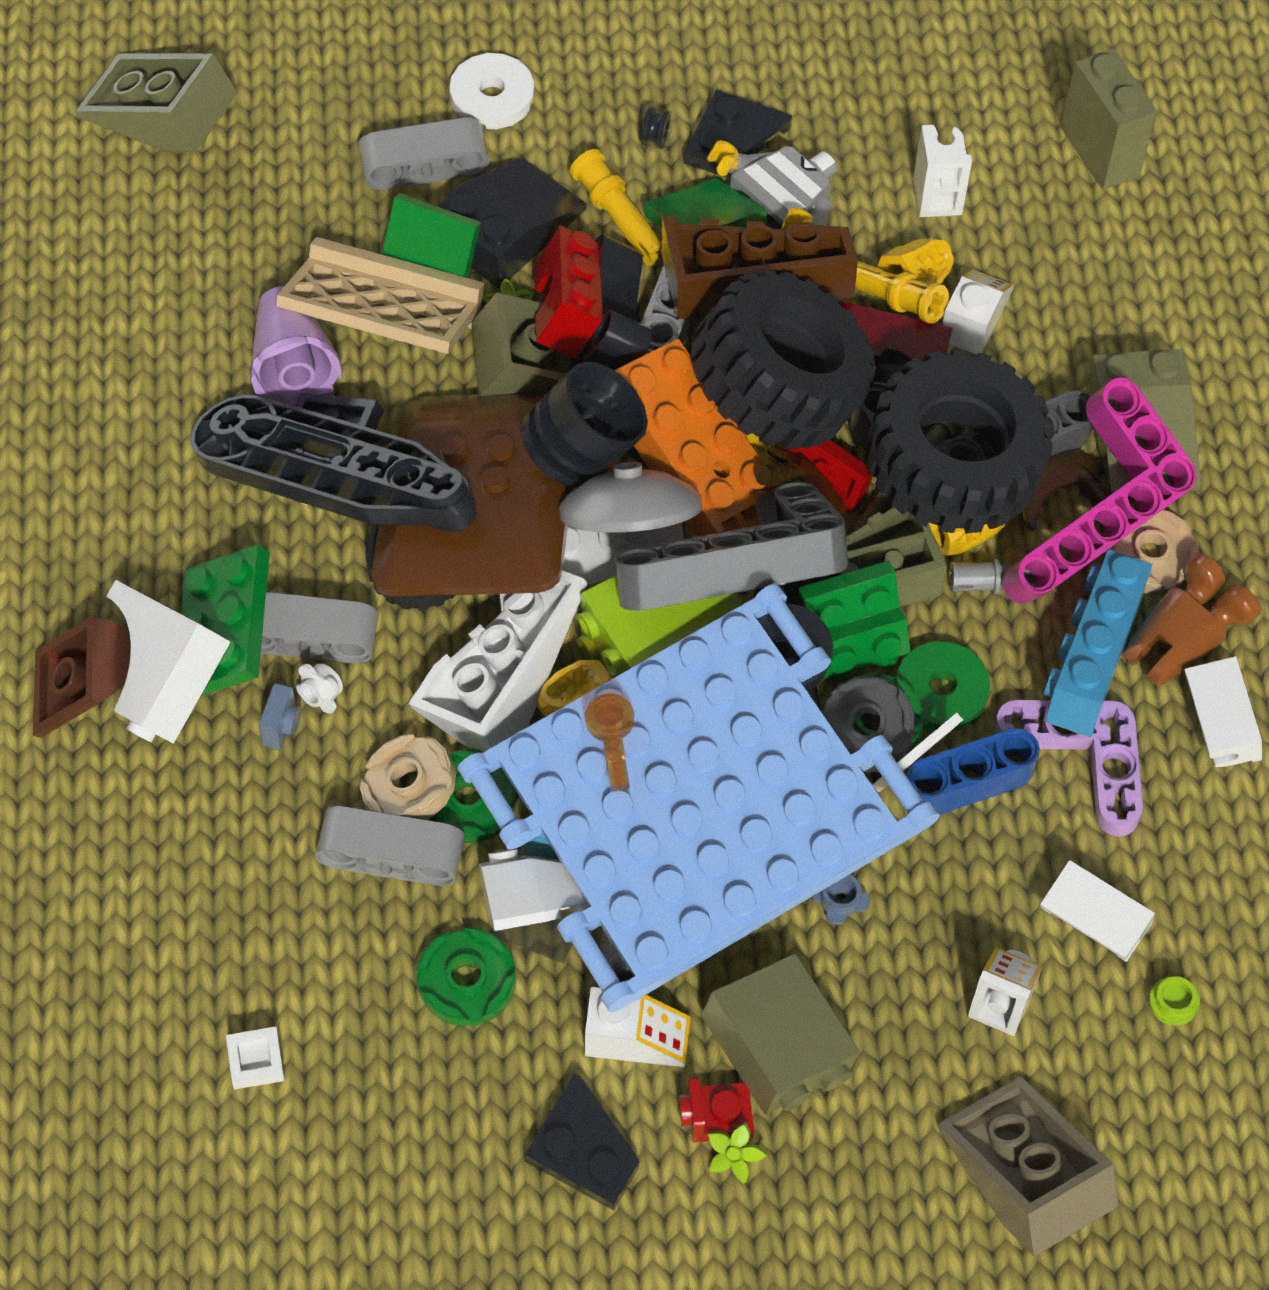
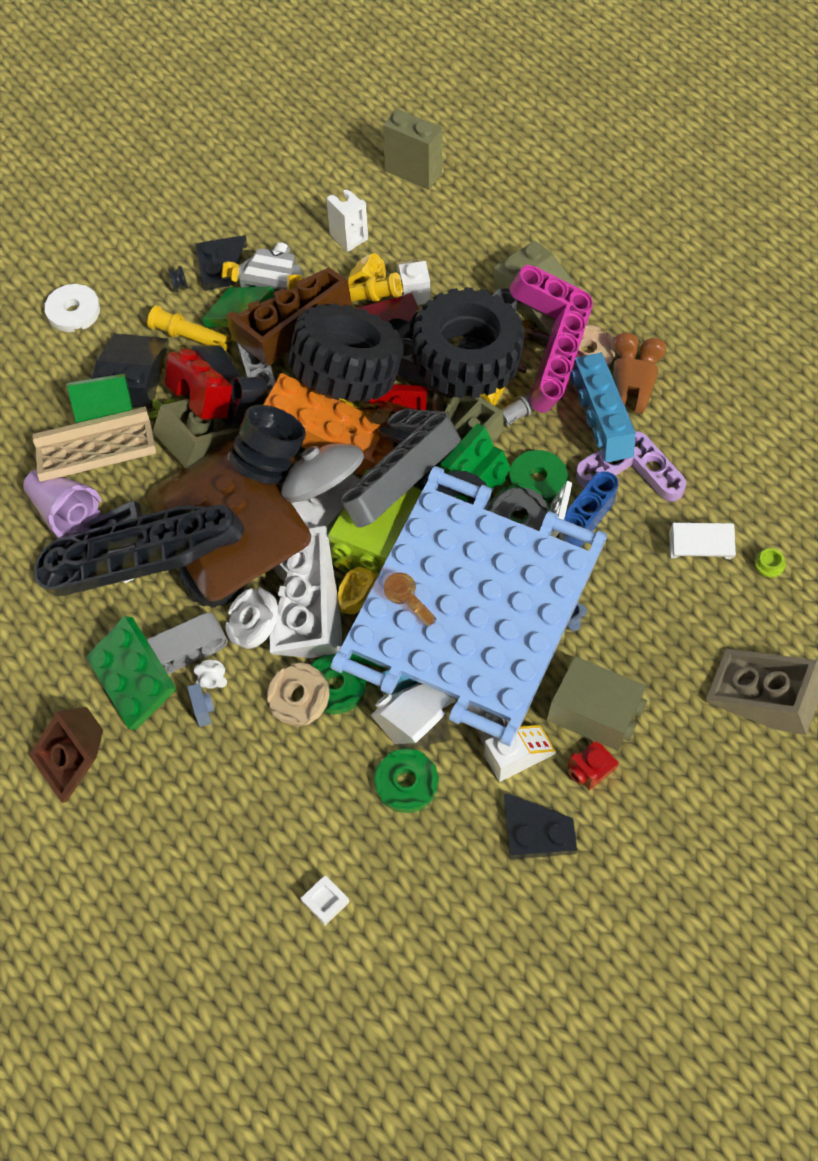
camera: 30 degrees left, 0 degrees up
(167, 664) = (119, 711): white arch -> none
(390, 846) = (313, 736): light grey beam -> none
(420, 645) = (252, 633): none -> white tile
(423, 153) = (59, 359): light grey beam -> none
(734, 1152) = (618, 781): lime plant -> none
(1004, 990) = (690, 608): white slope -> none
(1225, 712) = (687, 405): white hinge -> none

